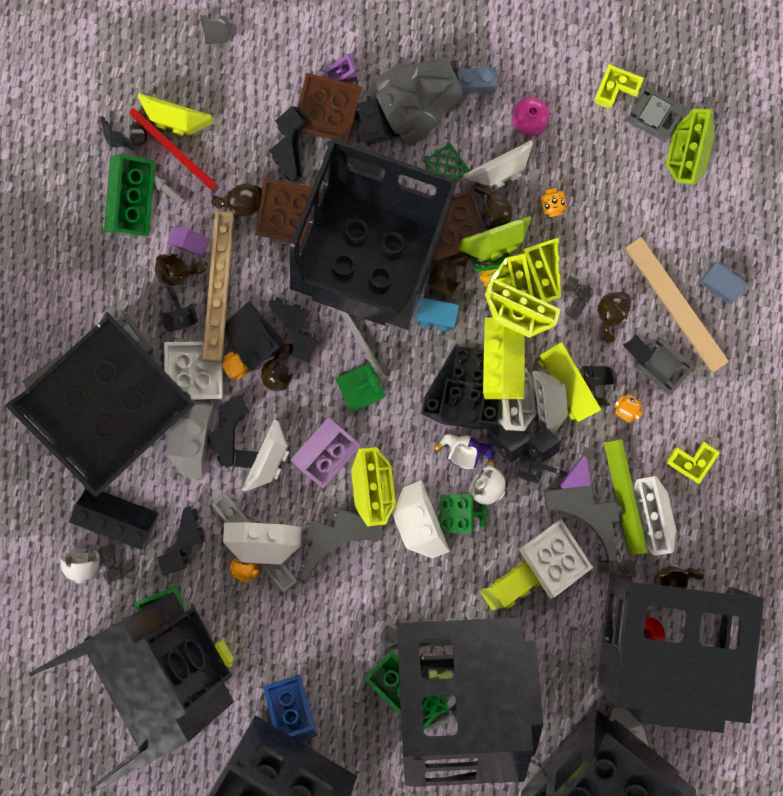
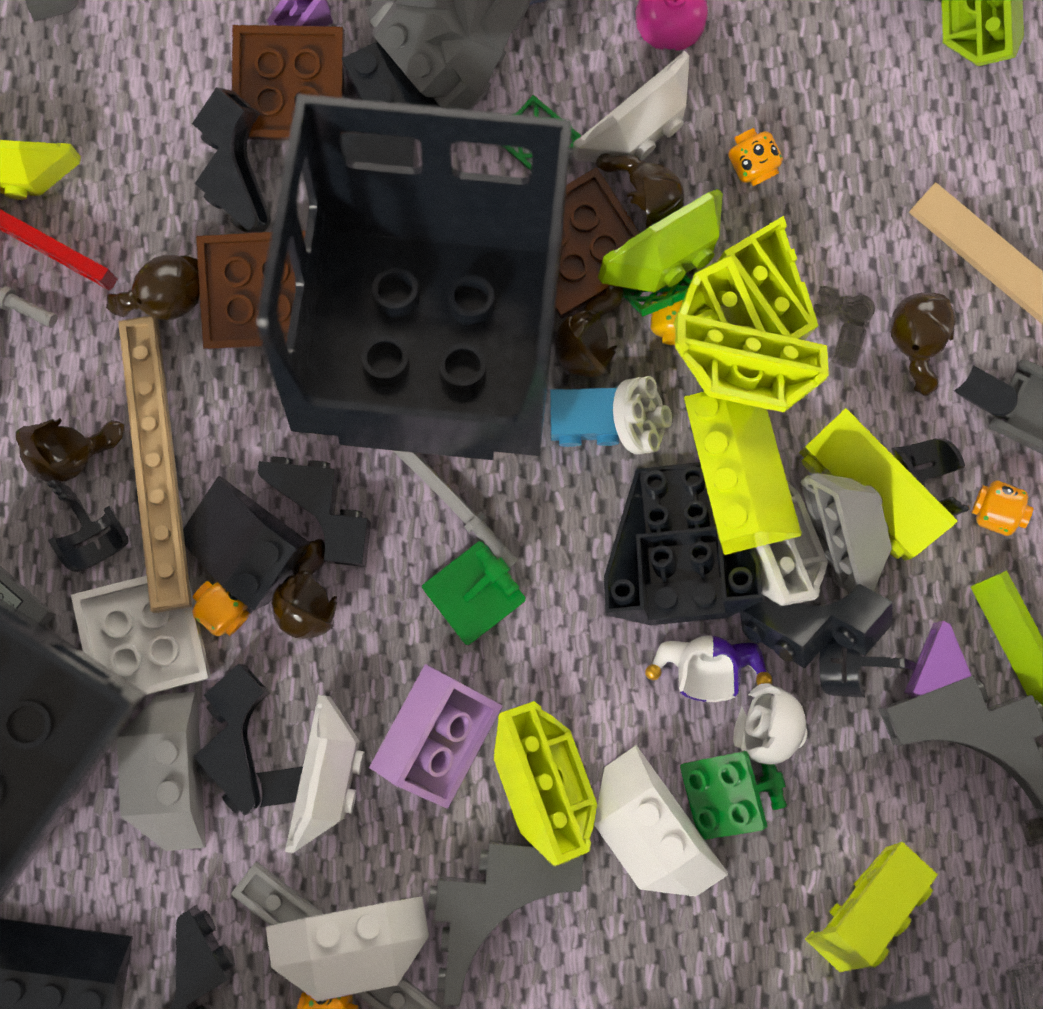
camera: 10 degrees left, 5 degrees down
(188, 240) = (79, 390): medium lavender slope -> none
(462, 320) = (640, 415): none -> white tile
(555, 558) = (943, 840): white plate -> none

